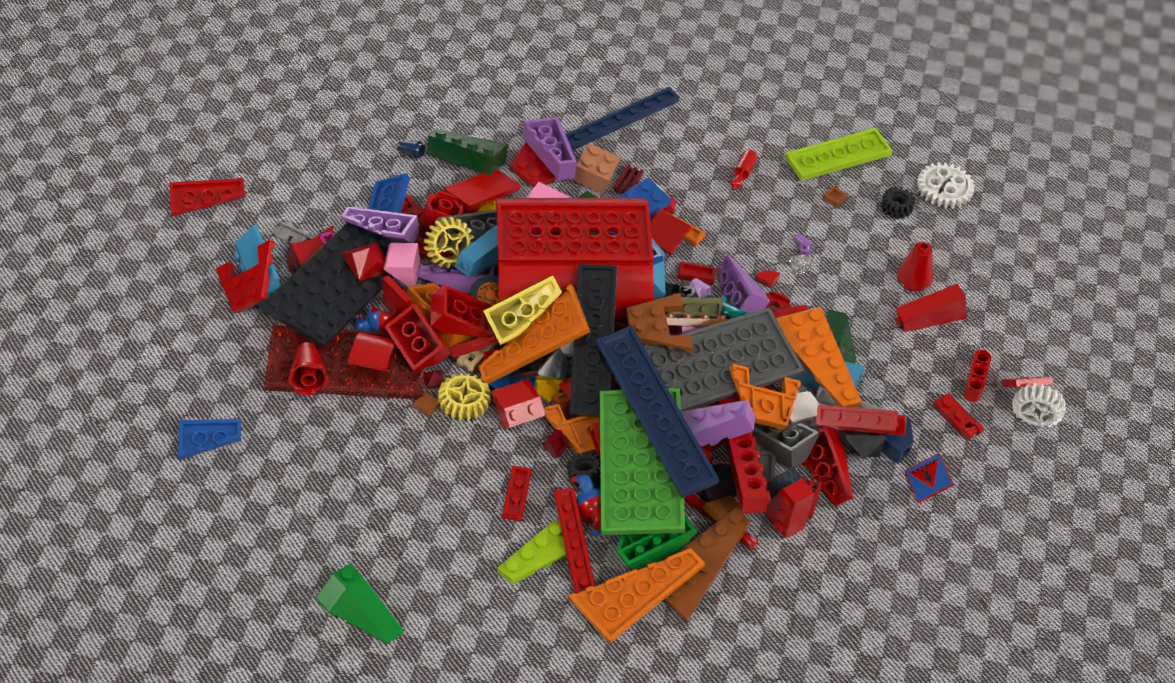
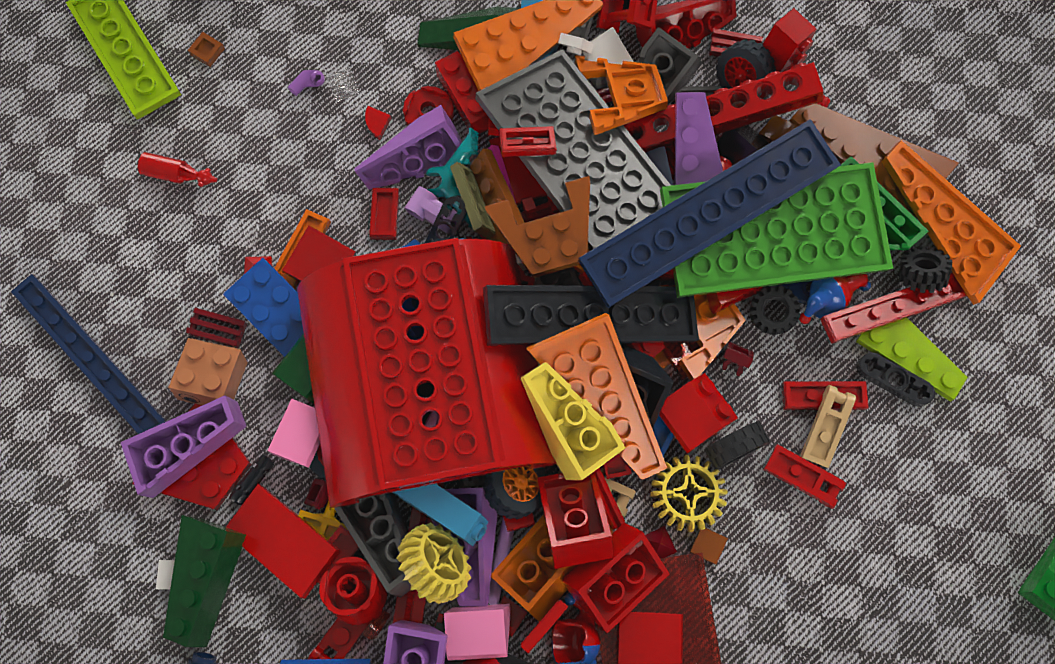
camera: 90 degrees left, 25 degrees up
(461, 465) = (804, 475): none -> red plate
(490, 420) = (737, 445): none -> black tyre
(493, 482) = (828, 427): none -> tan plate
(521, 528) = (910, 395): none -> black beam
(525, 185) = (251, 479): none -> black axle
(591, 562) = (925, 269): none -> black tyre
(733, 339) = (528, 145): none -> red tile
(809, 382) = (575, 45): none -> white plate

